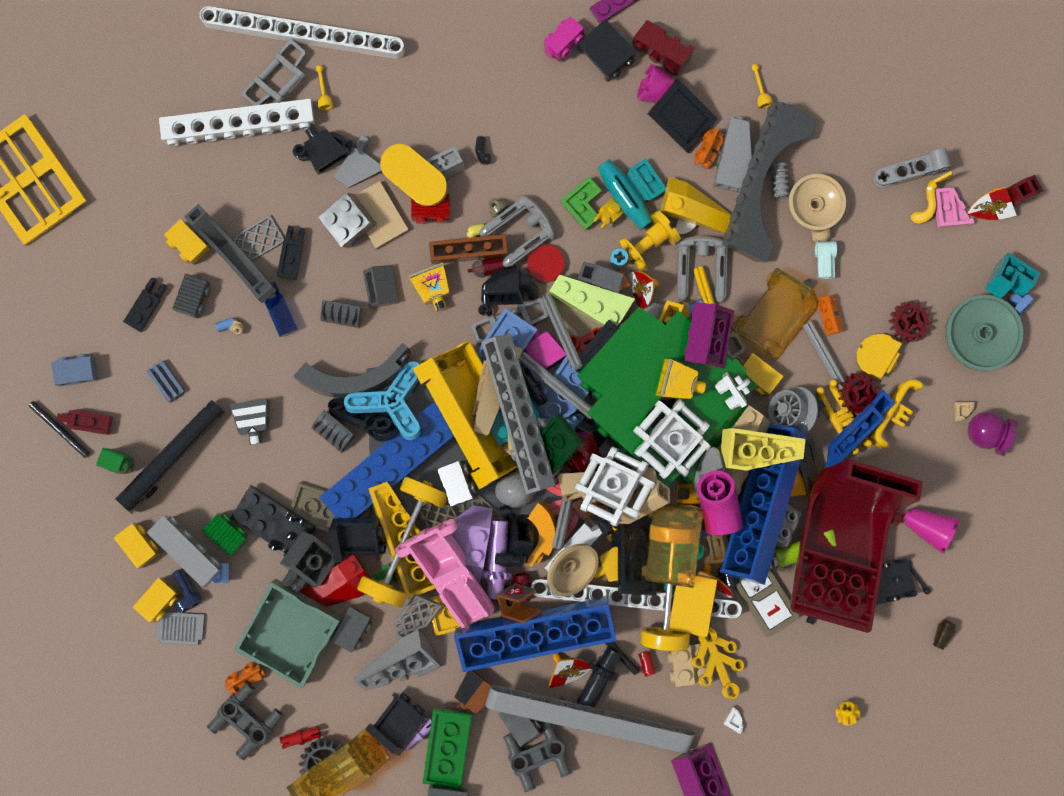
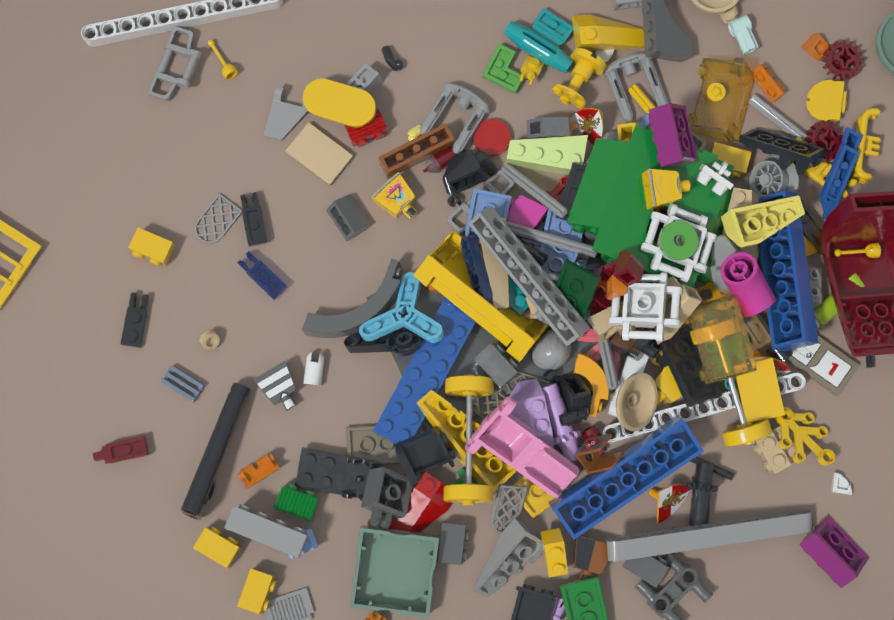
camera: 20 degrees left, 5 degrees down
(59, 429) = (98, 468): black bar -> none
(74, 371) = (93, 407): sand blue brick -> none
(115, 461) = (166, 475): green brick -> none
(171, 124) = (144, 118): white brick -> none
(191, 296) = (176, 294): dark grey brick -> none
(191, 597) = (288, 576): dark blue piece -> none
(206, 351) = (209, 340): none -> tan tile
(209, 489) = (252, 475): none -> orange hinge
(231, 253) = (198, 240): dark grey arch -> none
(231, 324) = (223, 306): arm -> none
(290, 418) = (314, 370): none -> white piece
(323, 148) = (245, 112): black torso -> none
(332, 431) = (358, 367): dark grey brick -> none
(341, 314) = (322, 256): dark grey brick -> none
(347, 220) = (294, 168): brick -> none
(440, 676) = (554, 552): none -> yellow brick
(473, 386) = (476, 267): none -> dark blue beam
(498, 208) = (428, 104): dark tan tile -> none
(595, 457) = (615, 288): none -> orange slope
(609, 444) = (625, 268): none -> dark red brick
(624, 255) = (560, 101): medium azure bush -> none
(647, 664) = (738, 464): red pin -> none
(681, 438) = (688, 236): none -> bright green tile
(775, 304) = (715, 92): none -> yellow tile
(814, 384) = (785, 147): none -> black hinge
(857, 514) = (872, 250): none -> yellow hinge
(890, 297) = (815, 46): none -> orange slope

